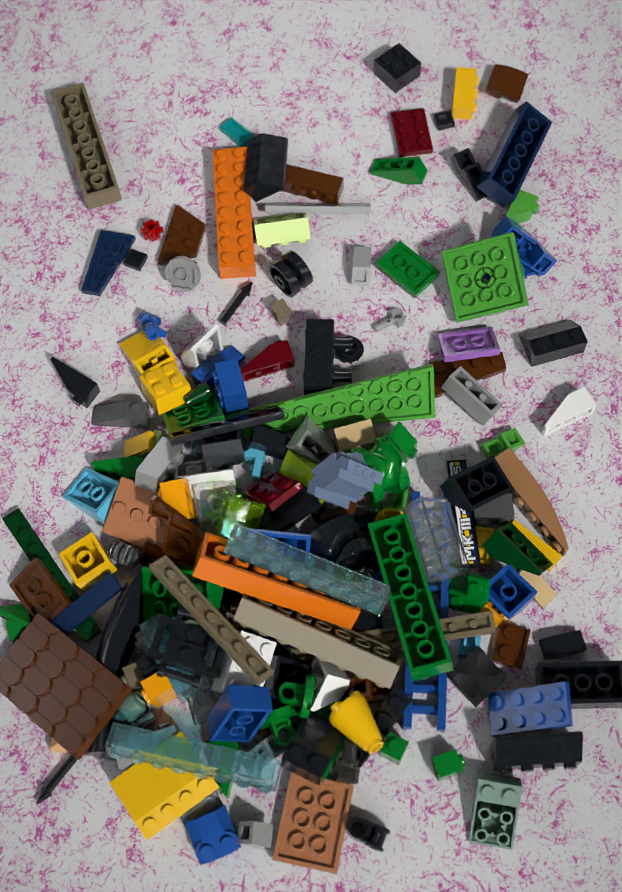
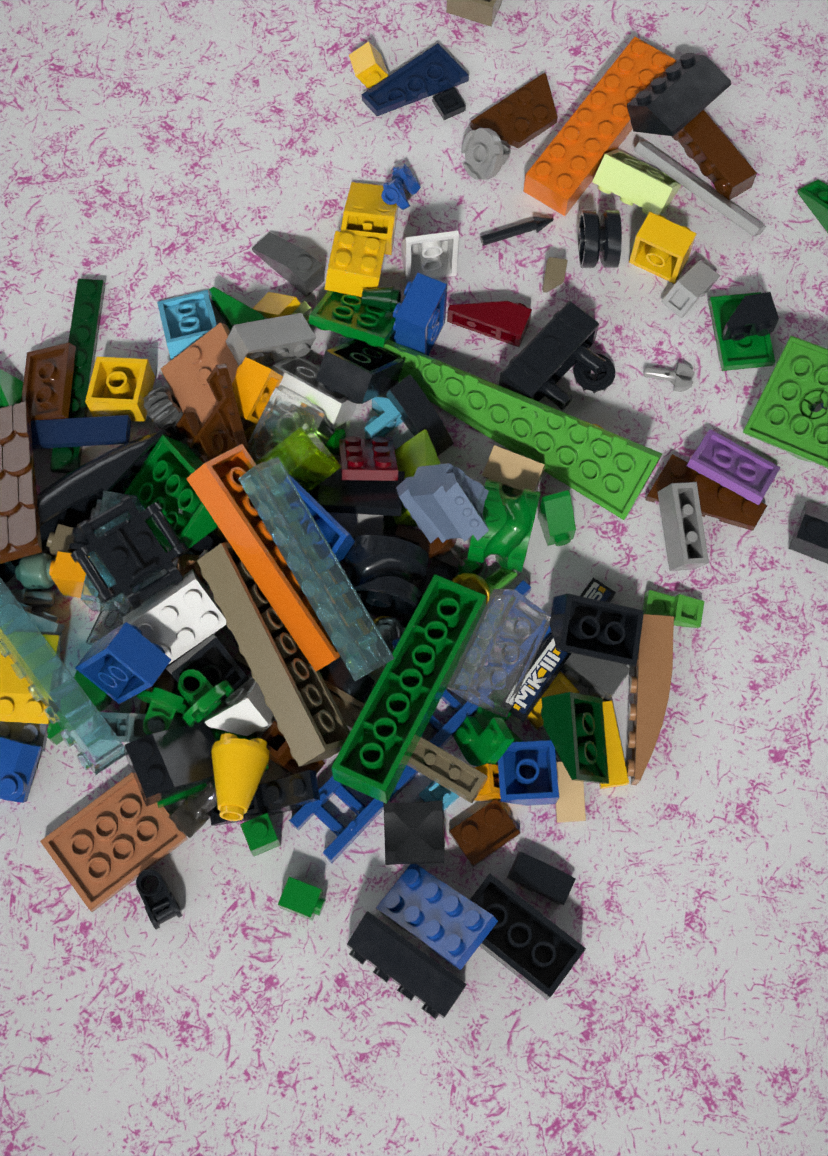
camera: 35 degrees right, 5 degrees up
(71, 270) = (368, 65): none -> yellow brick
(79, 387) = (269, 196): black slope -> none
(151, 230) = (492, 82): red gear -> none
(203, 372) = (458, 283): blue slope -> none
(211, 620) = (173, 544): dark tan tile -> none
(225, 425) = (376, 351): black tile -> none
(236, 132) = (683, 36): teal tile -> none
(255, 834) = (44, 802): light grey brick -> none
(311, 442) = (460, 441): light grey slope -> none
(328, 254) = (662, 247): none -> yellow brick
(409, 256) = (752, 317): none -> black slope
(495, 810) = (309, 986): sand green slope -> none
(573, 408) = (791, 630): white slope -> none

